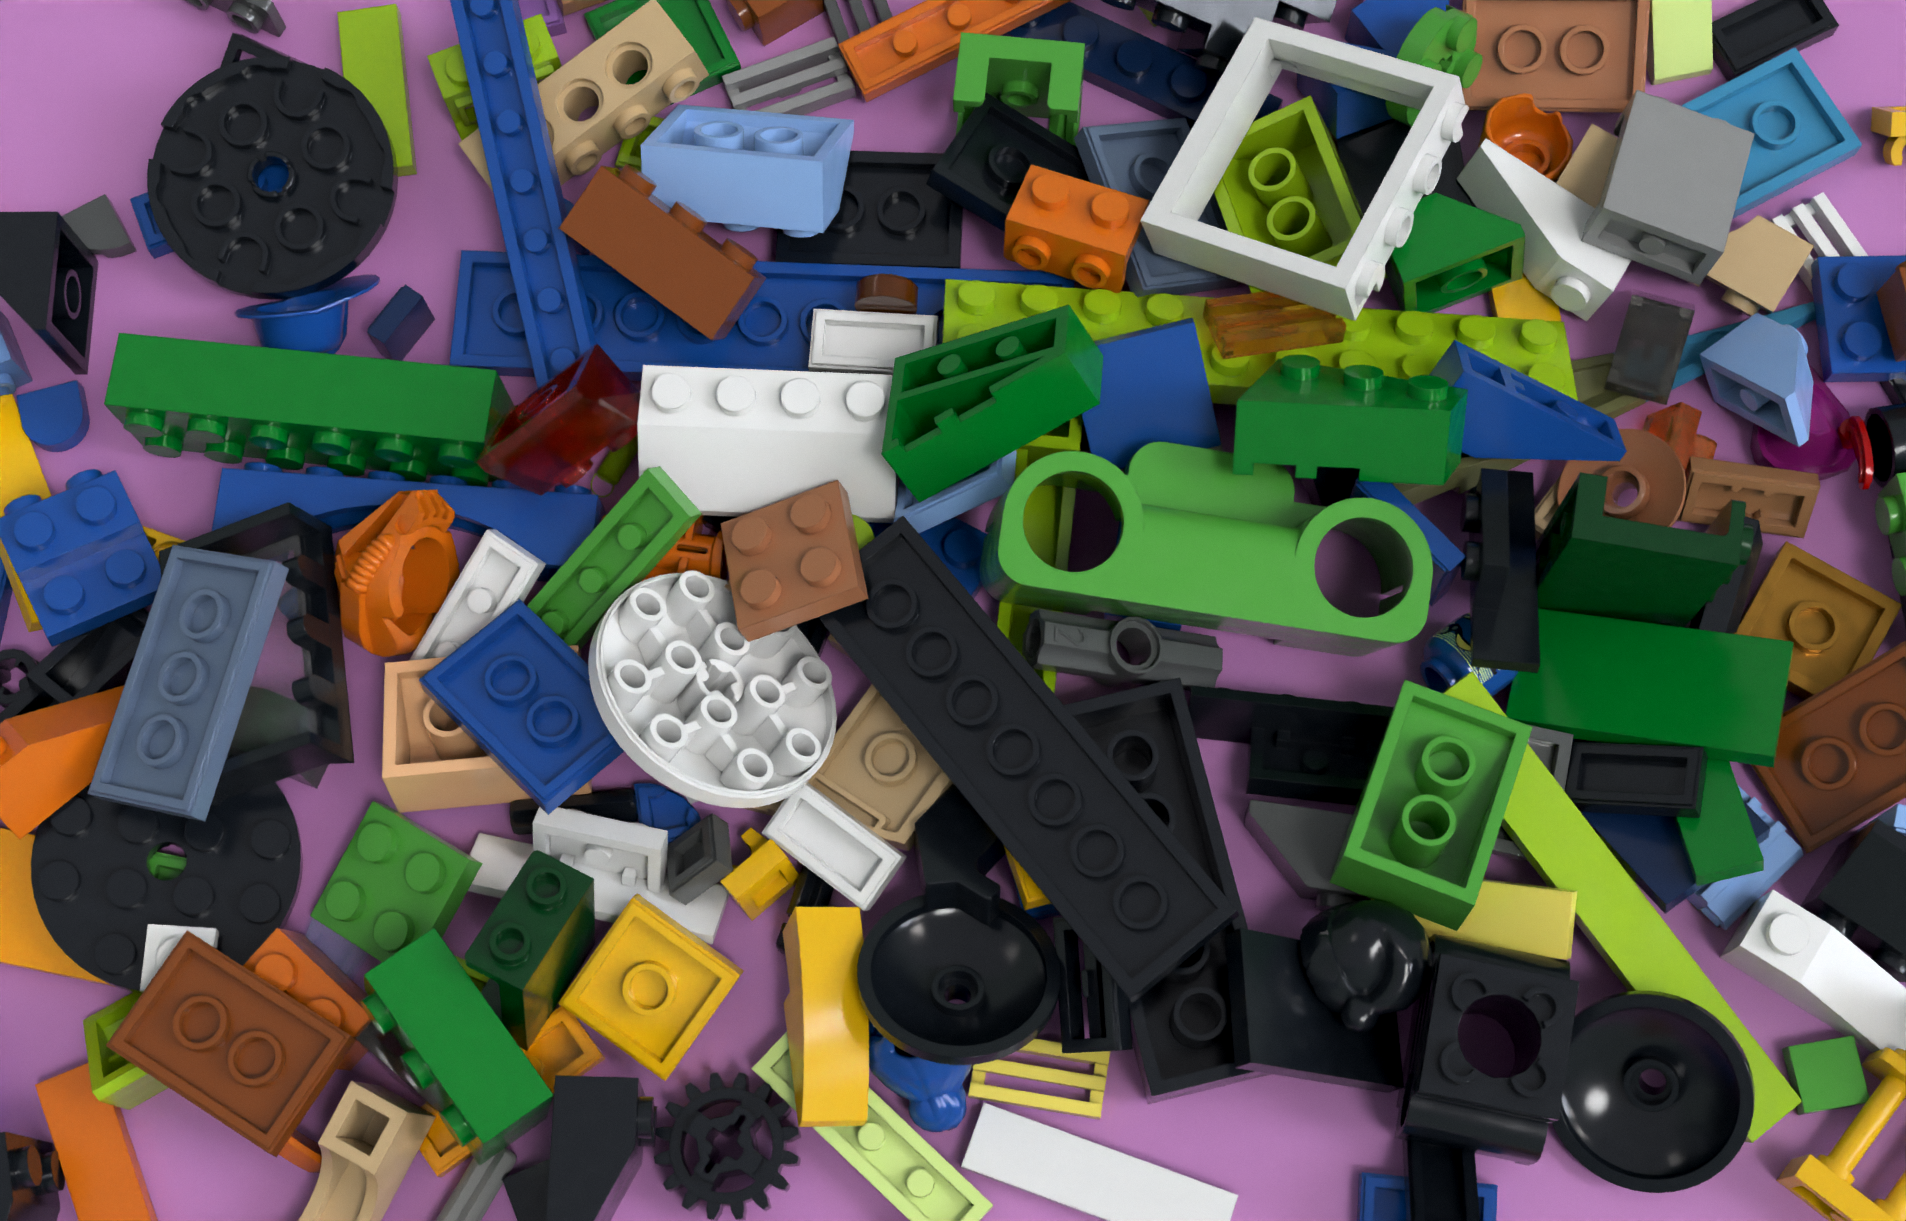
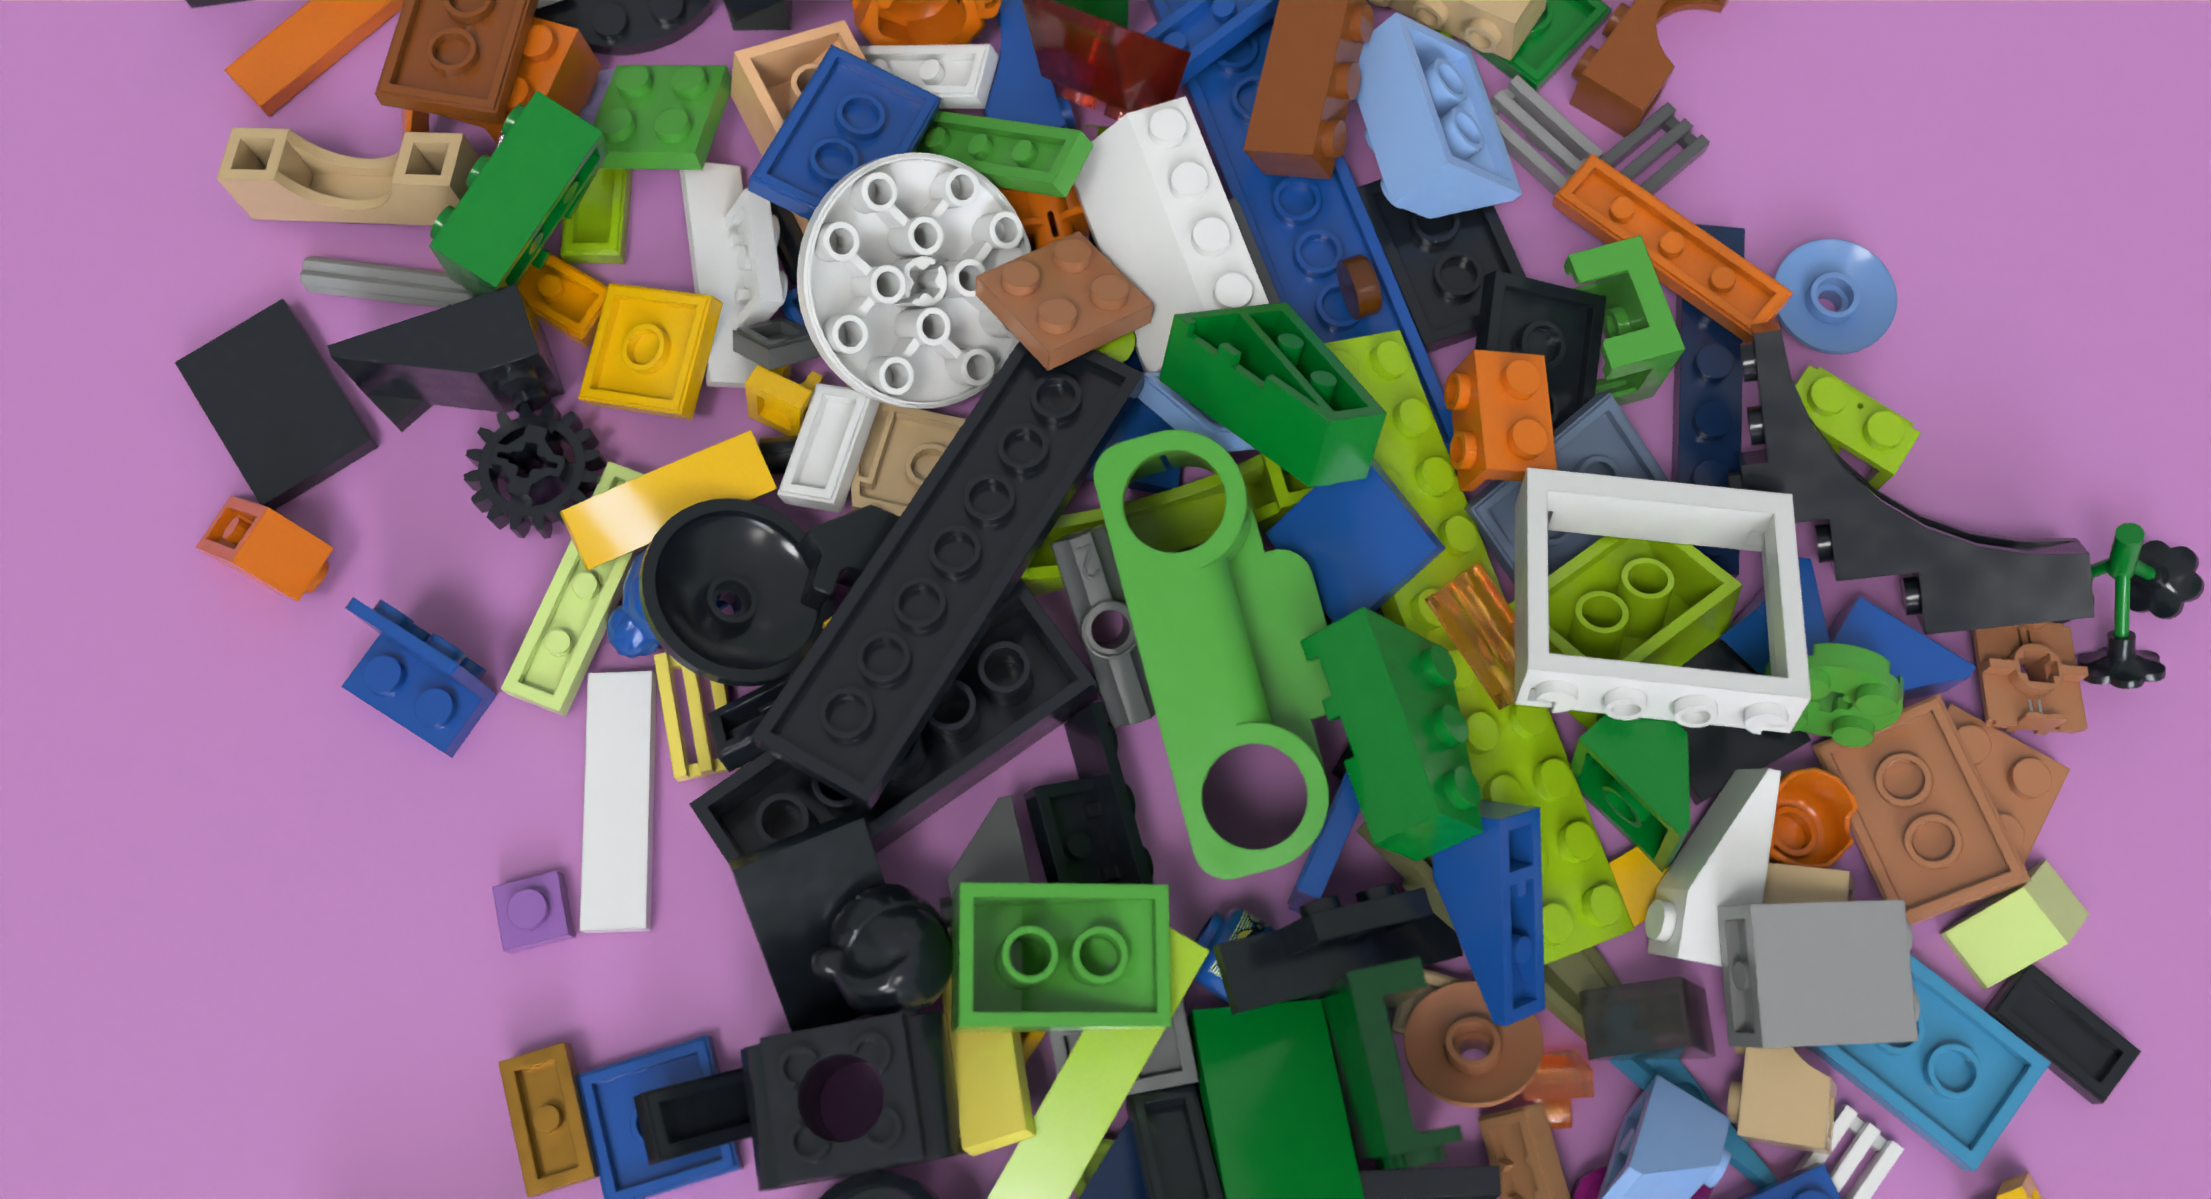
camera: 65 degrees right, 0 degrees up
(535, 943) = (629, 226): dark green panel -> none
(867, 339) = (1310, 285): white tile -> none

